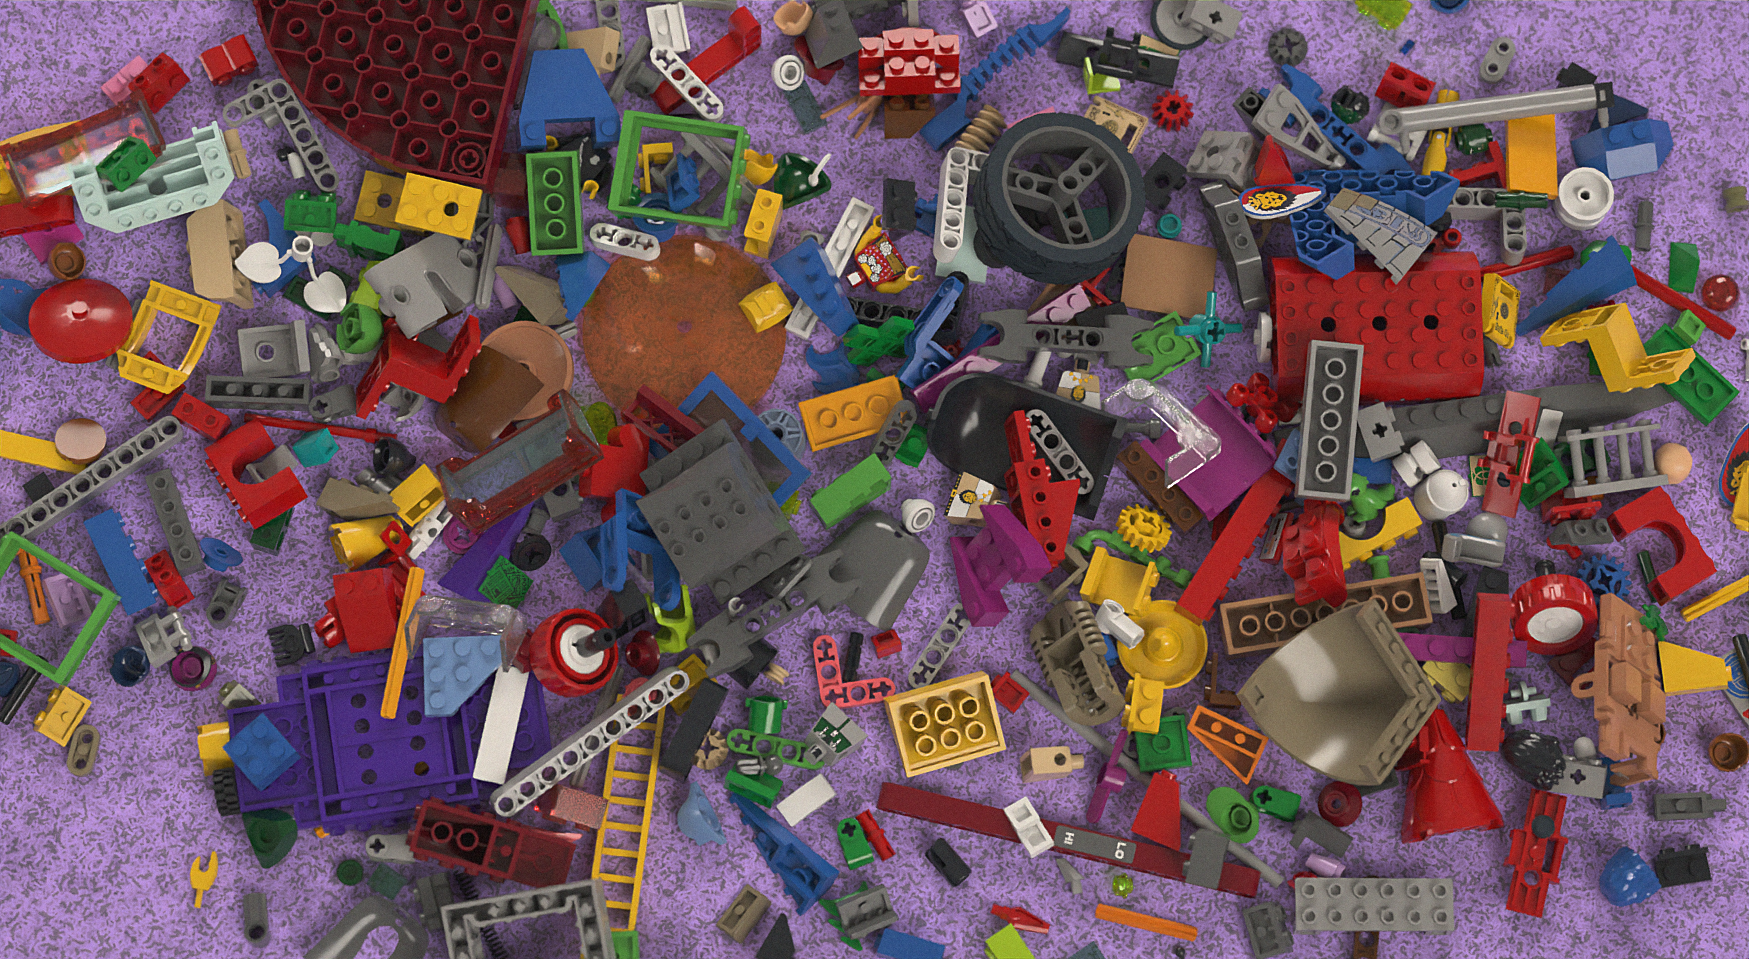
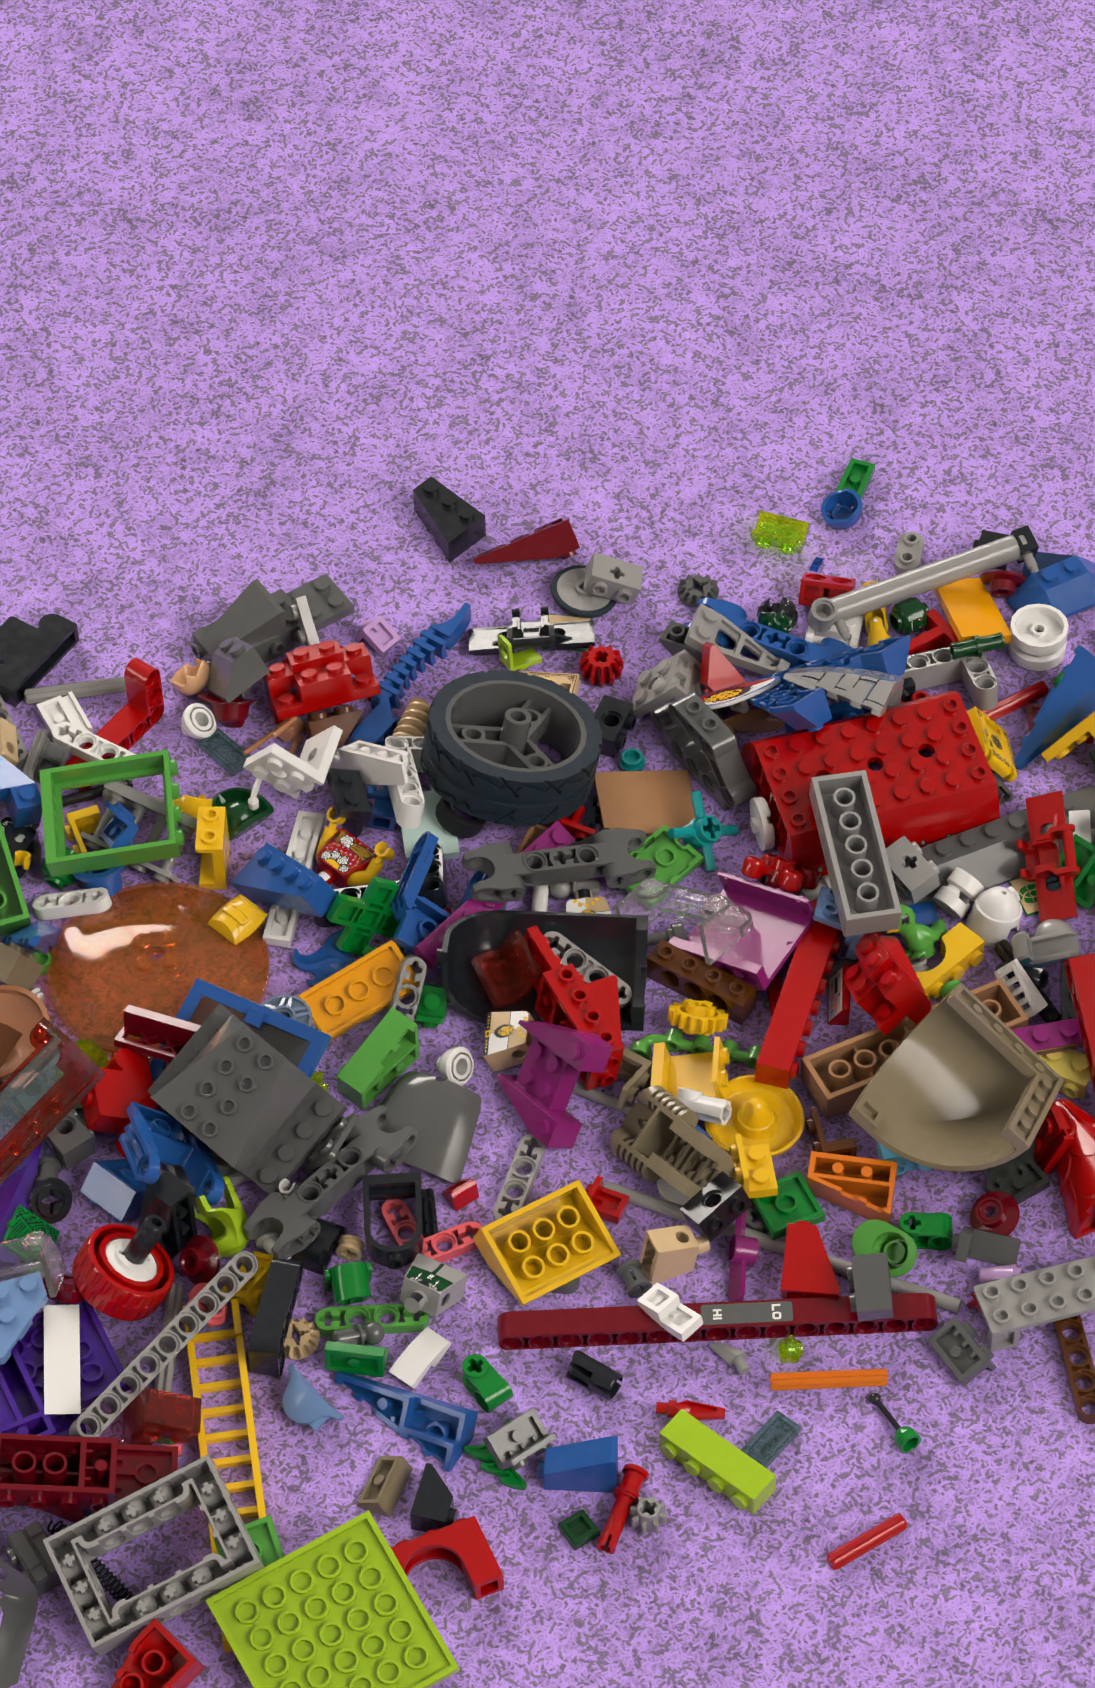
camera: 10 degrees left, 25 degrees down
(827, 630) = (388, 1188): none -> black window
(873, 163) = (292, 773): none -> white bracket
(875, 835) = (508, 1371): red pin -> none
(930, 177) = (375, 762): none -> white wedge
(988, 435) = (508, 972): none -> clear red bracket
(1010, 769) = (641, 1281): none -> dark grey bush
(1085, 734) = (716, 1206): none -> black brick
(1570, 129) = (1002, 582): none -> dark red piece

